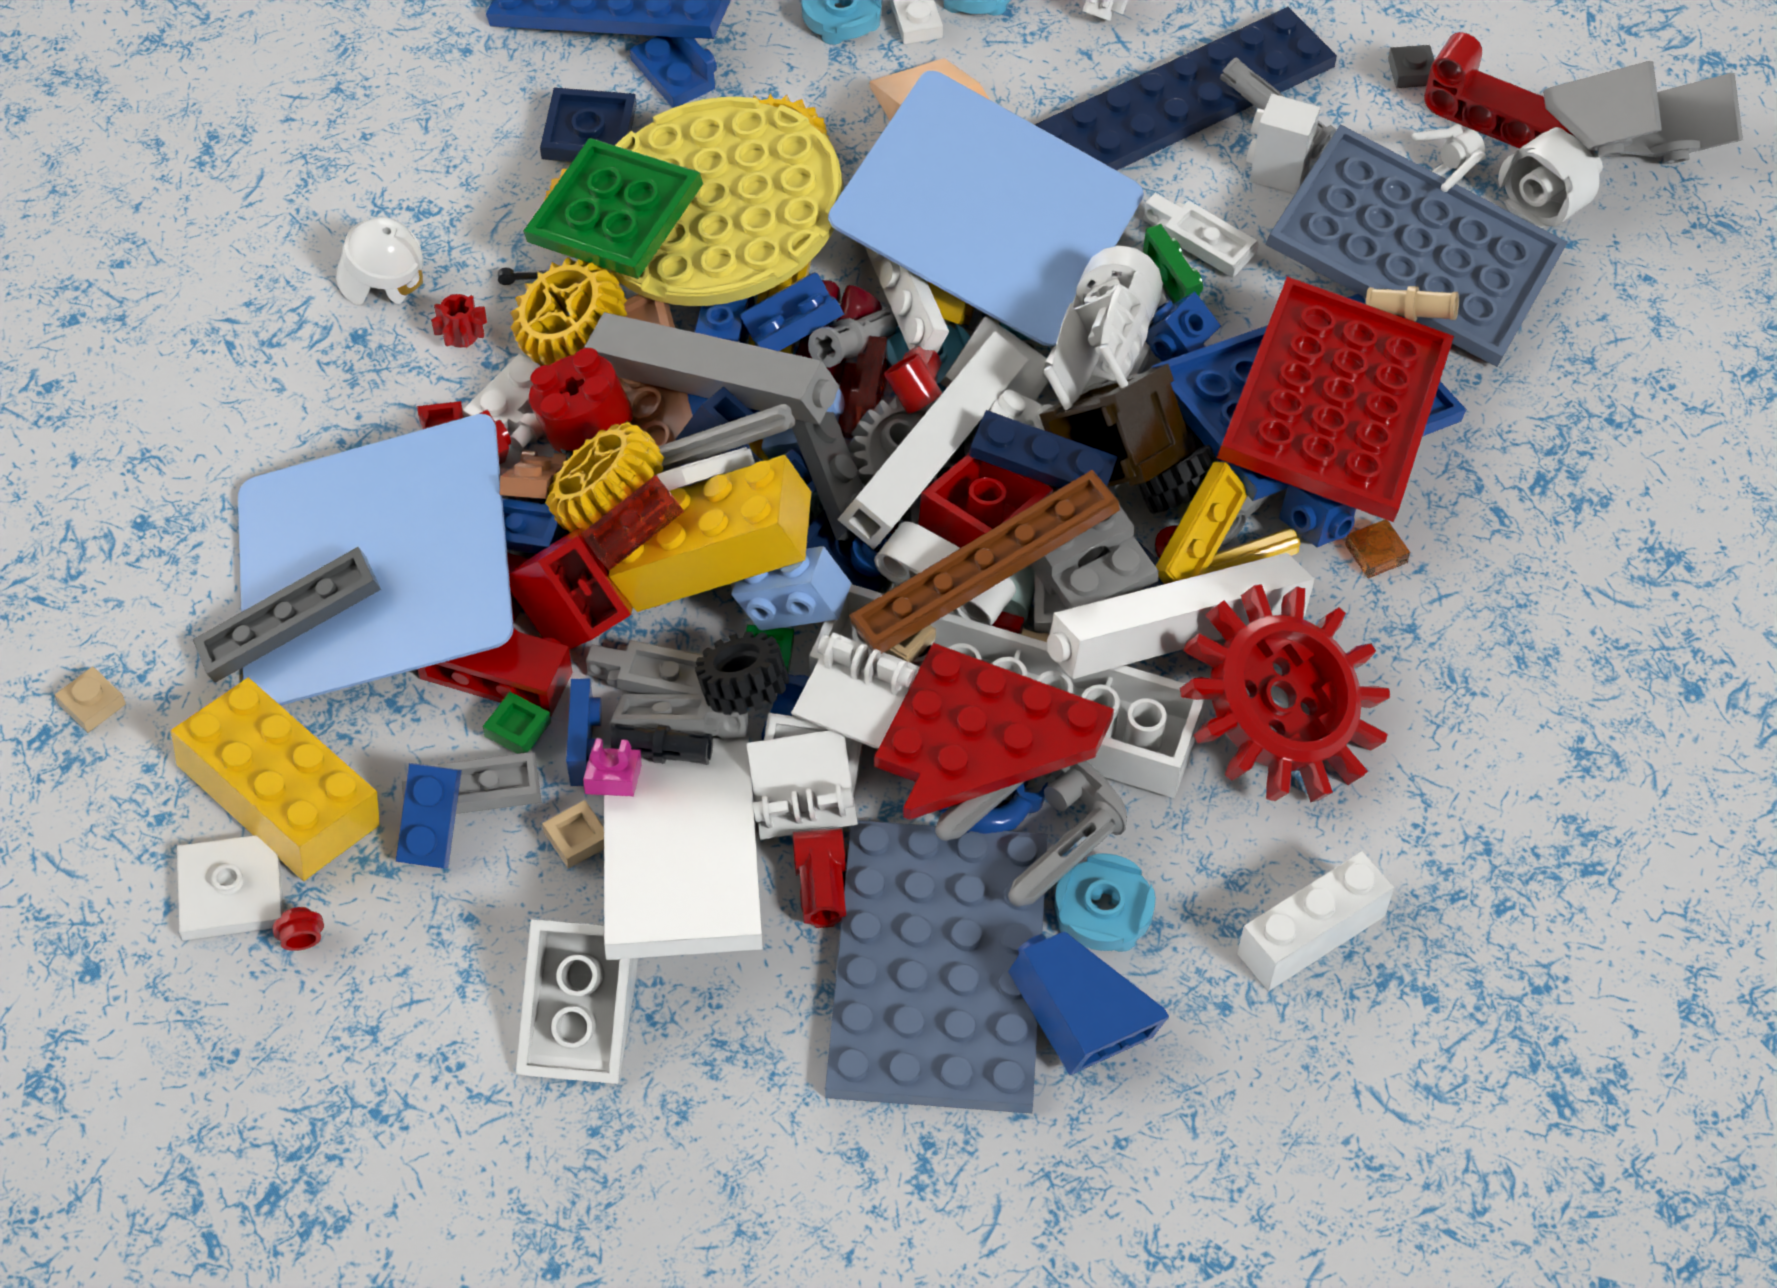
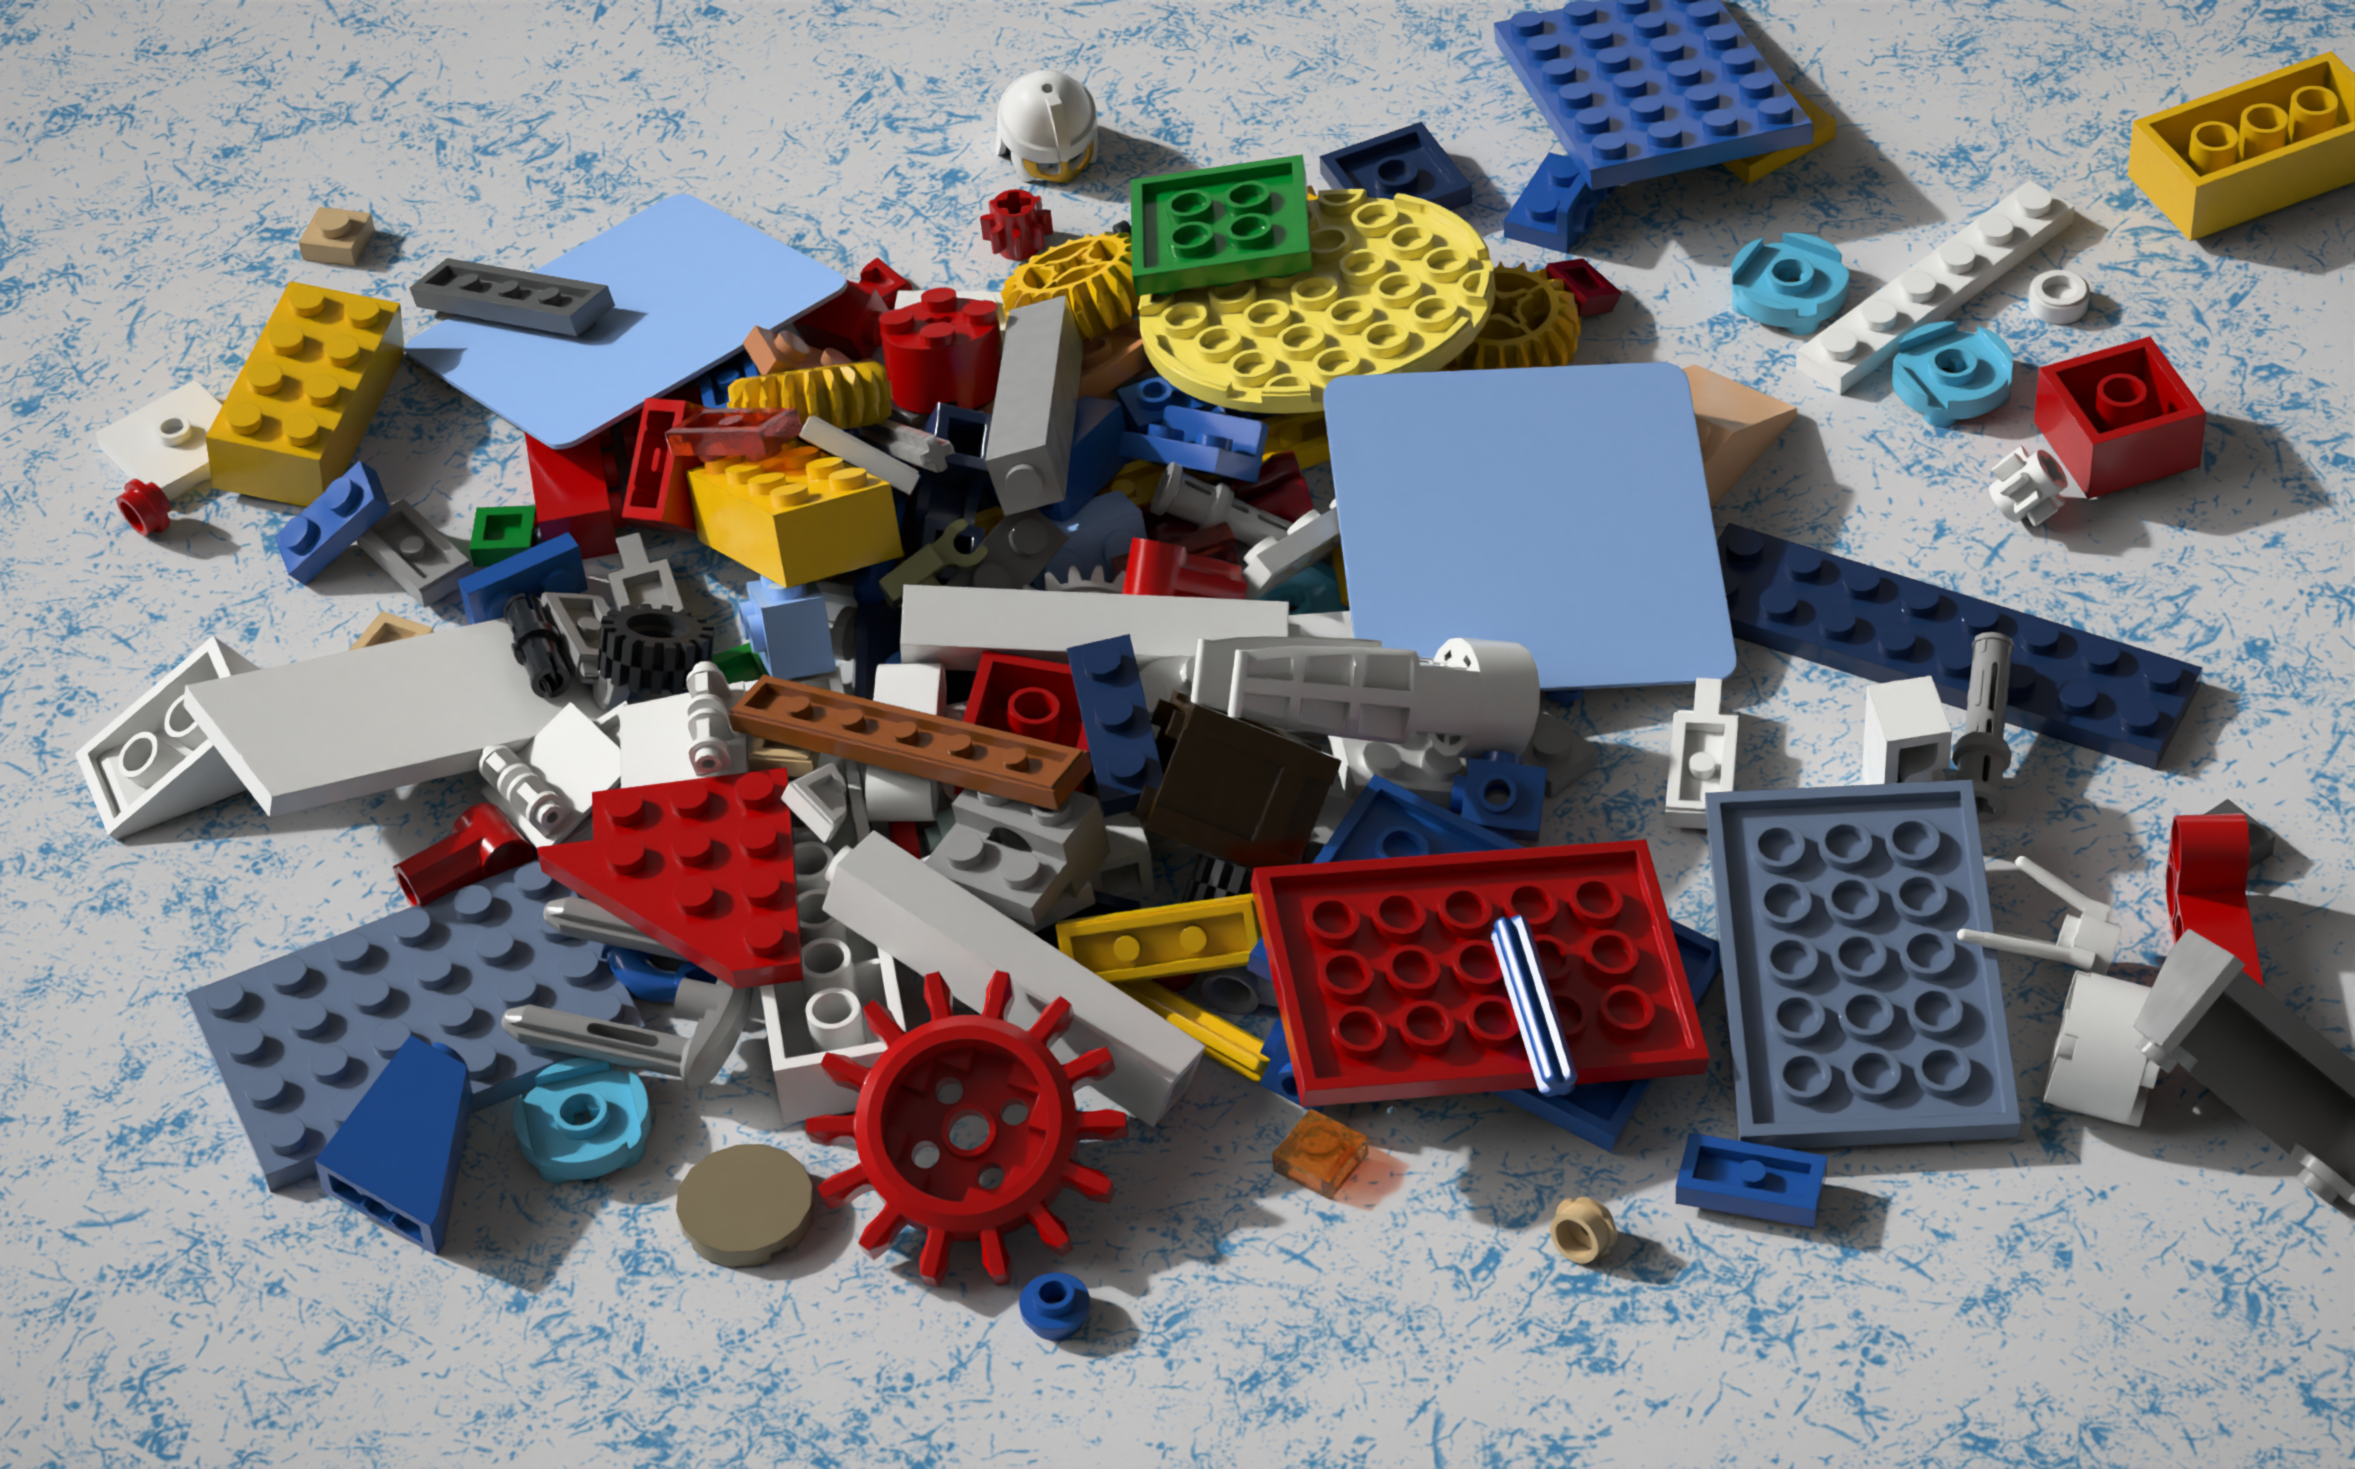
camera: 65 degrees right, 10 degrees down
(612, 770) = (469, 619): dark pink tile -> none
(763, 87) = (1590, 288): none -> dark red plate
(824, 485) = (929, 564): none -> olive plate
(975, 641) = (819, 800): none -> white tile
(1176, 274) = (1610, 755): green plate -> none
(1231, 846) = (745, 1204): none -> dark tan tile
(1315, 921) = (669, 1317): white brick -> none
(1394, 380) = (1534, 1006): none -> axle
(1415, 303) = (1718, 986): tan pin -> none
(1415, 735) = (1055, 1320): none -> blue plate
(1518, 457) = (1583, 1230): none -> tan plate
(1528, 370) = (1751, 1179): none -> blue plate

